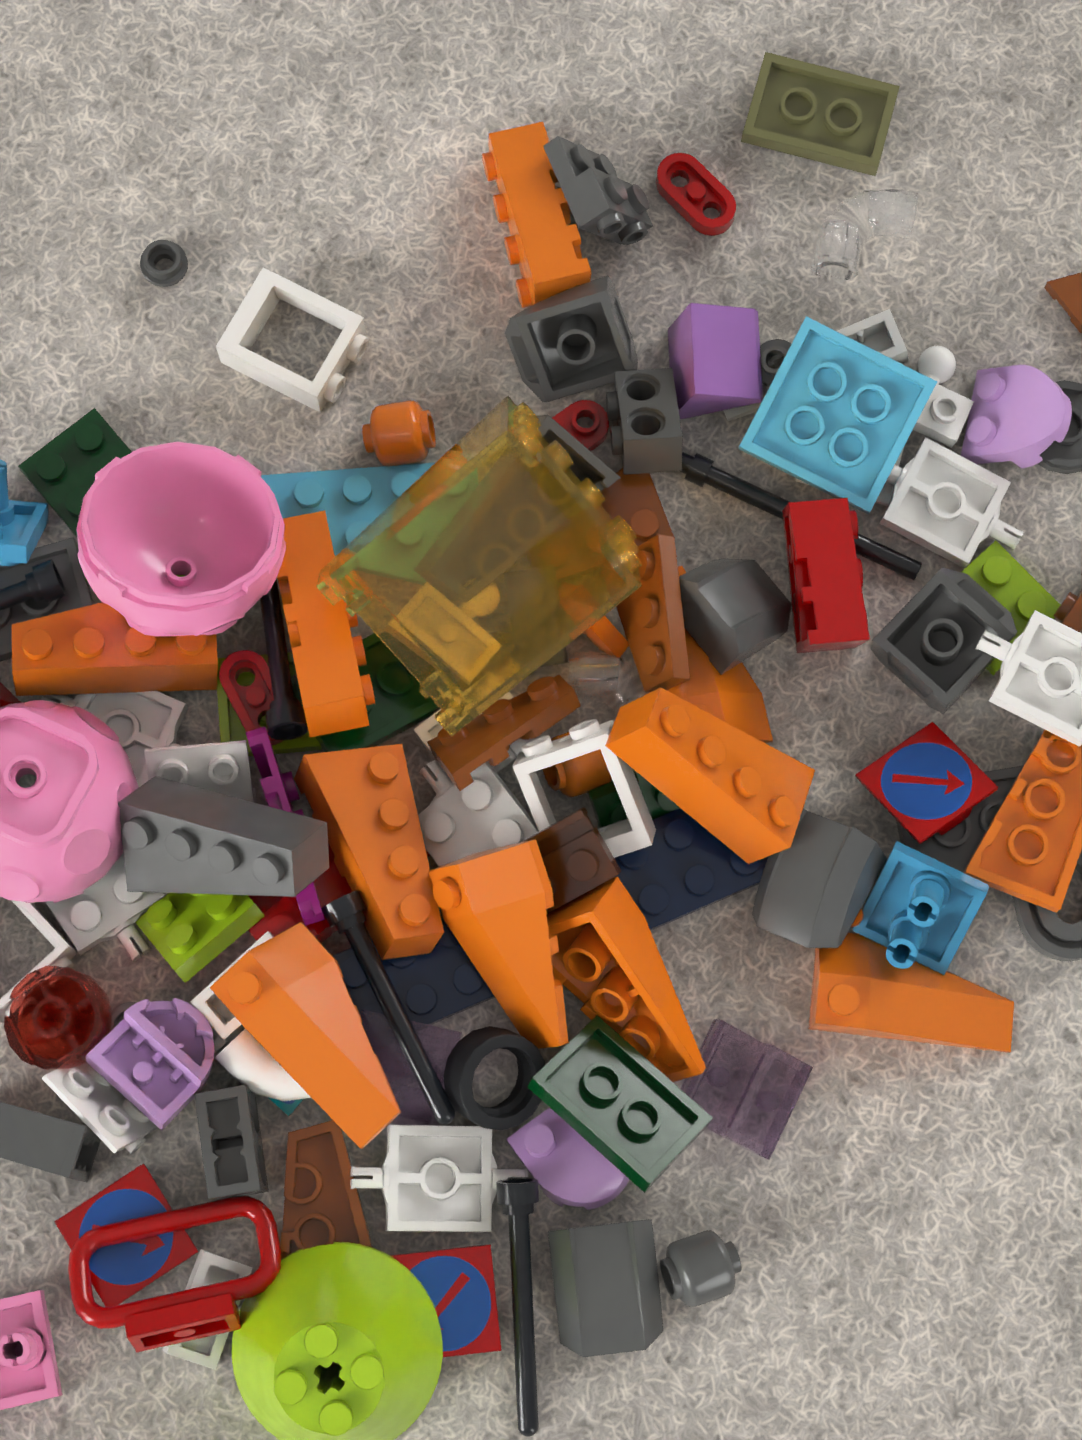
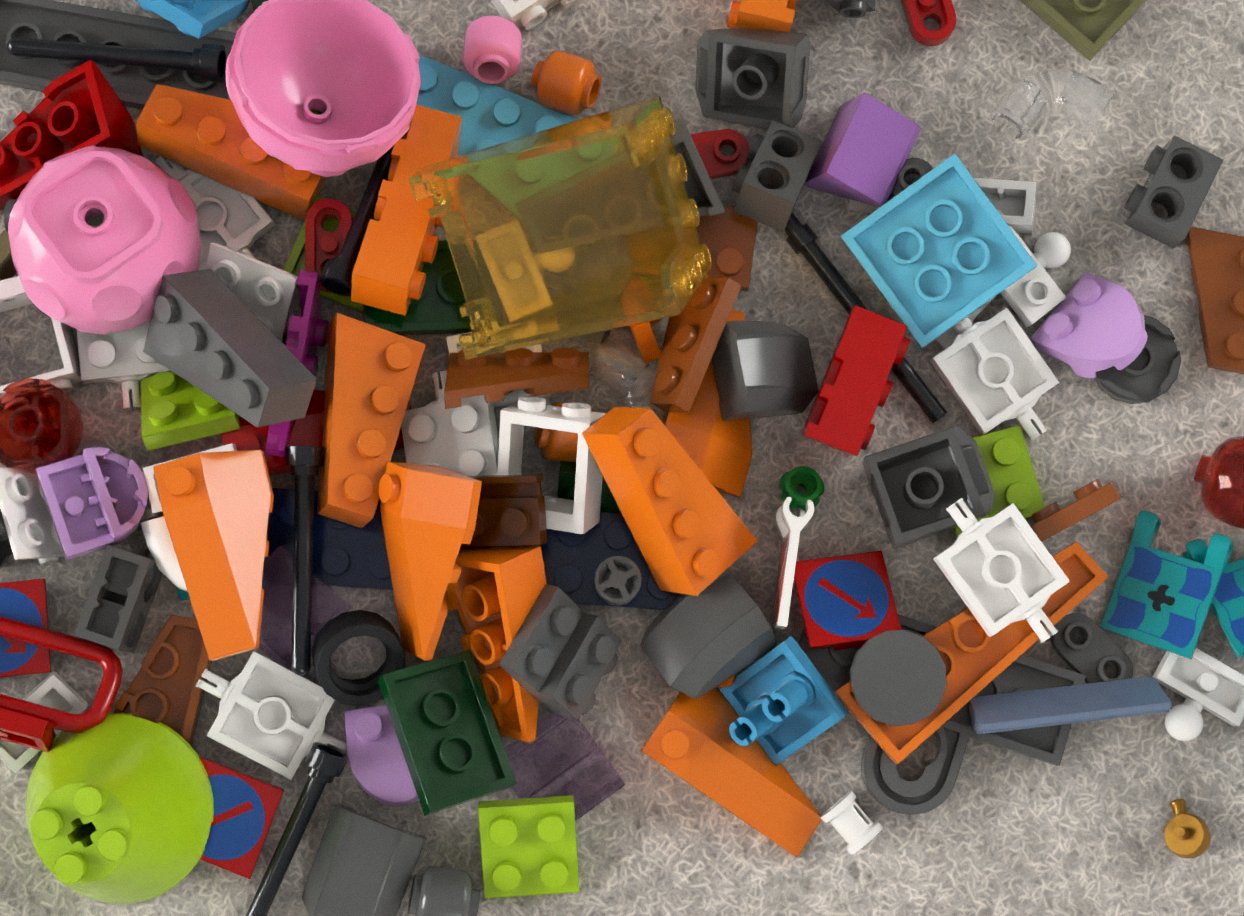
camera: 25 degrees right, 5 degrees up
(311, 436) = (492, 49): none -> bright pink head
(690, 972) = (561, 654): none -> dark grey plate
(710, 866) = (621, 570): none -> dark grey wheel
(754, 1174) = (528, 846): none -> lime plate
(829, 690) = (801, 476): none -> green plate
(854, 773) = (790, 536): none -> white flag
(1017, 828) = (898, 678): none -> dark grey tile
(1026, 258) = (1179, 196): none -> dark grey brick
(1044, 990) = (851, 822): none -> white bush

